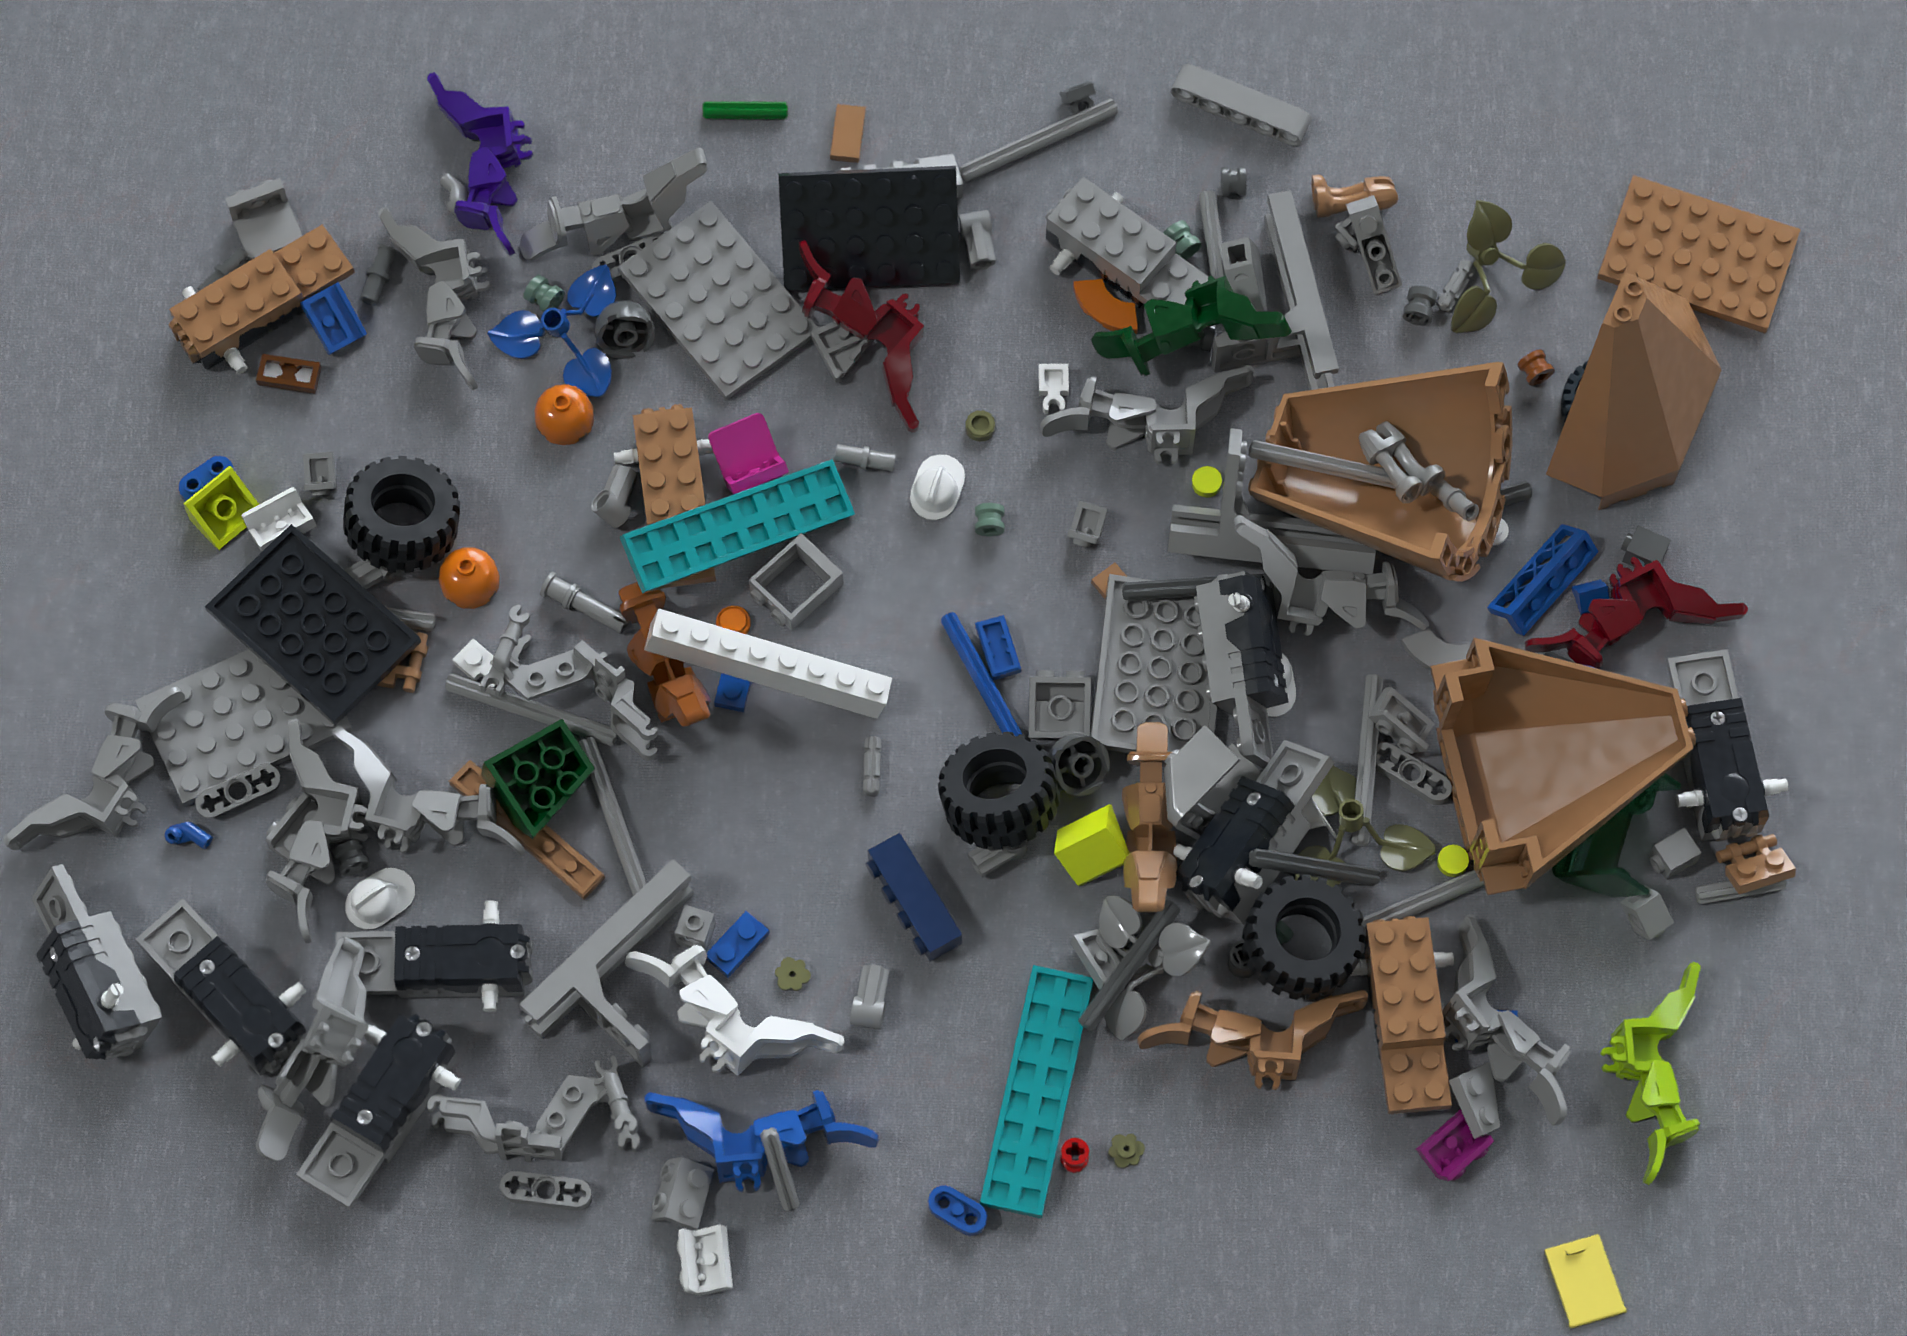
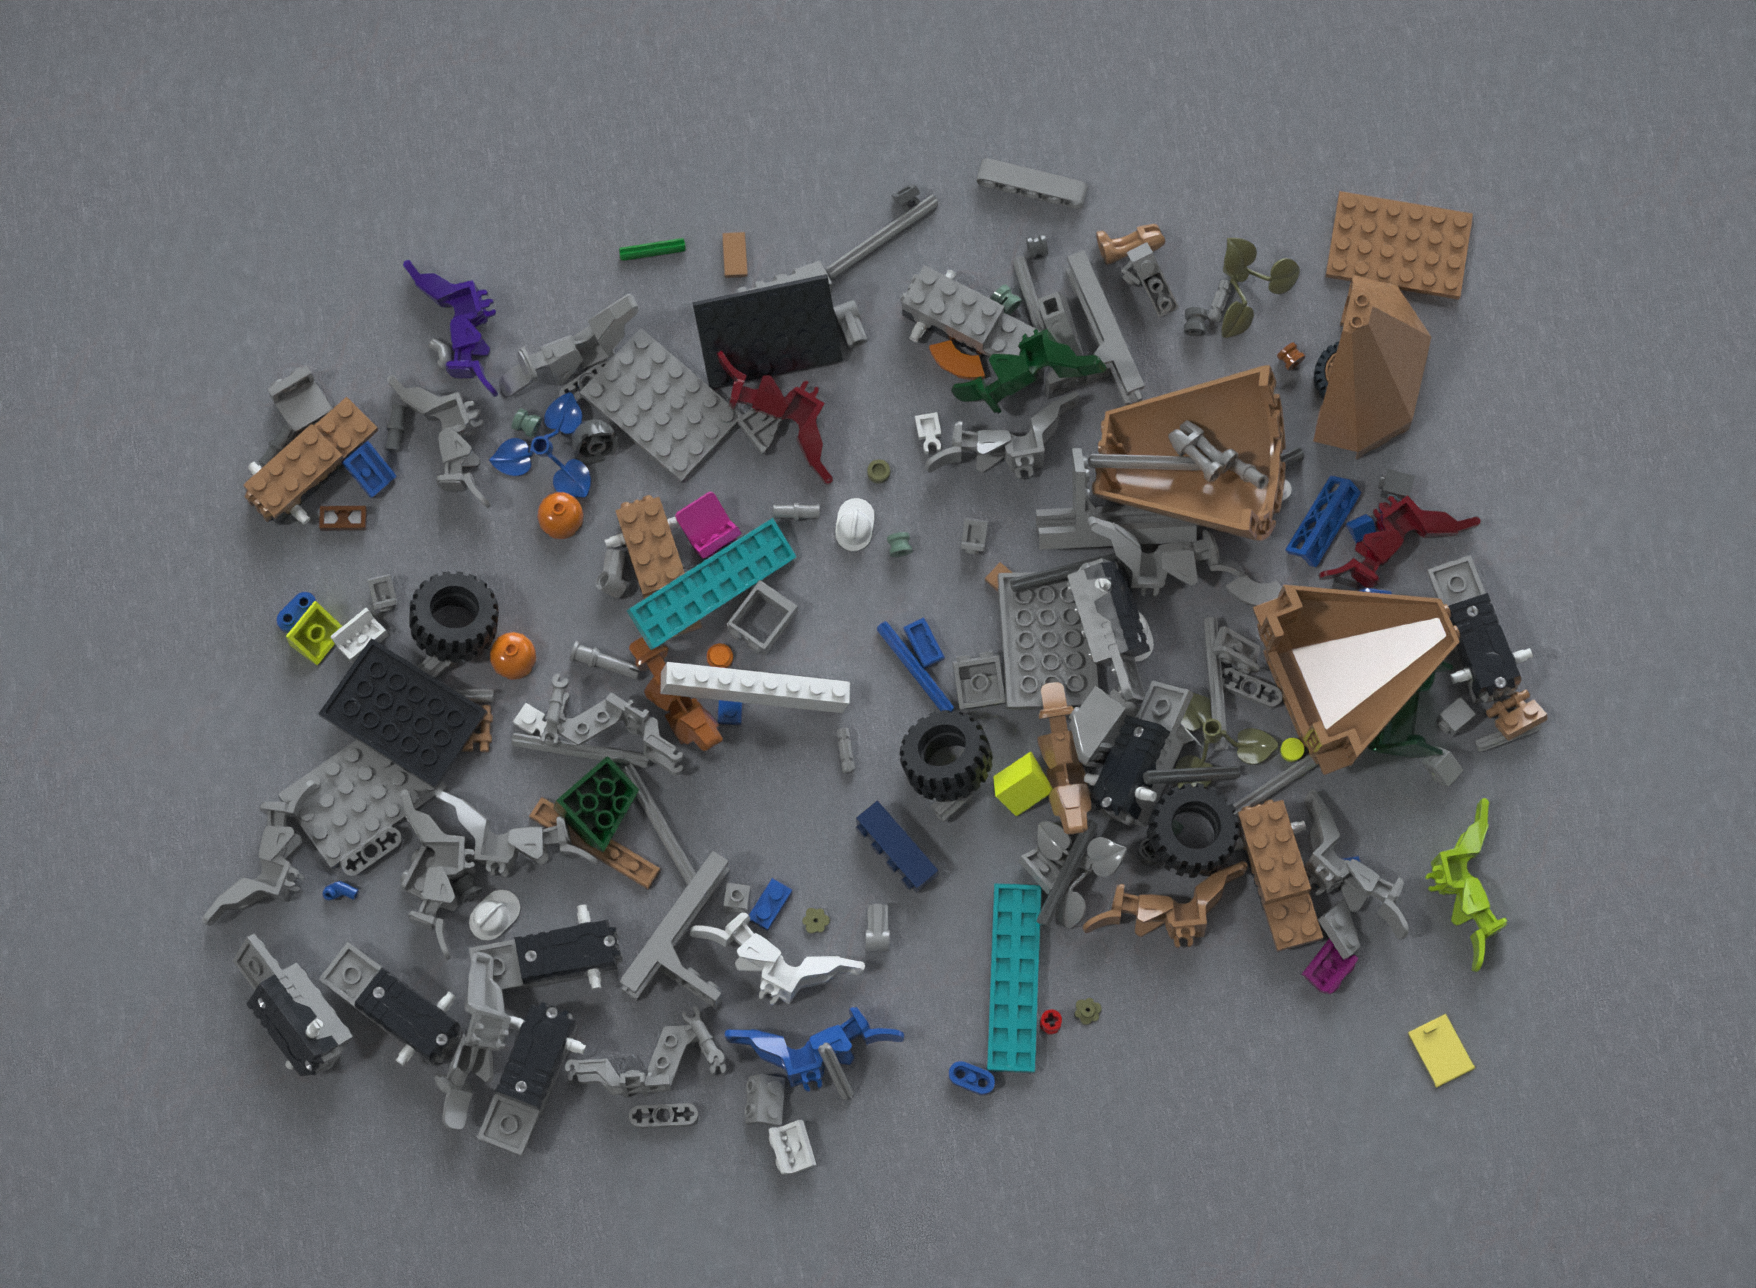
camera: 10 degrees left, 5 degrees up
(1079, 764) = (1002, 724): dark grey cylinder -> none
(1206, 481) = (1058, 486): neon yellow tile -> none

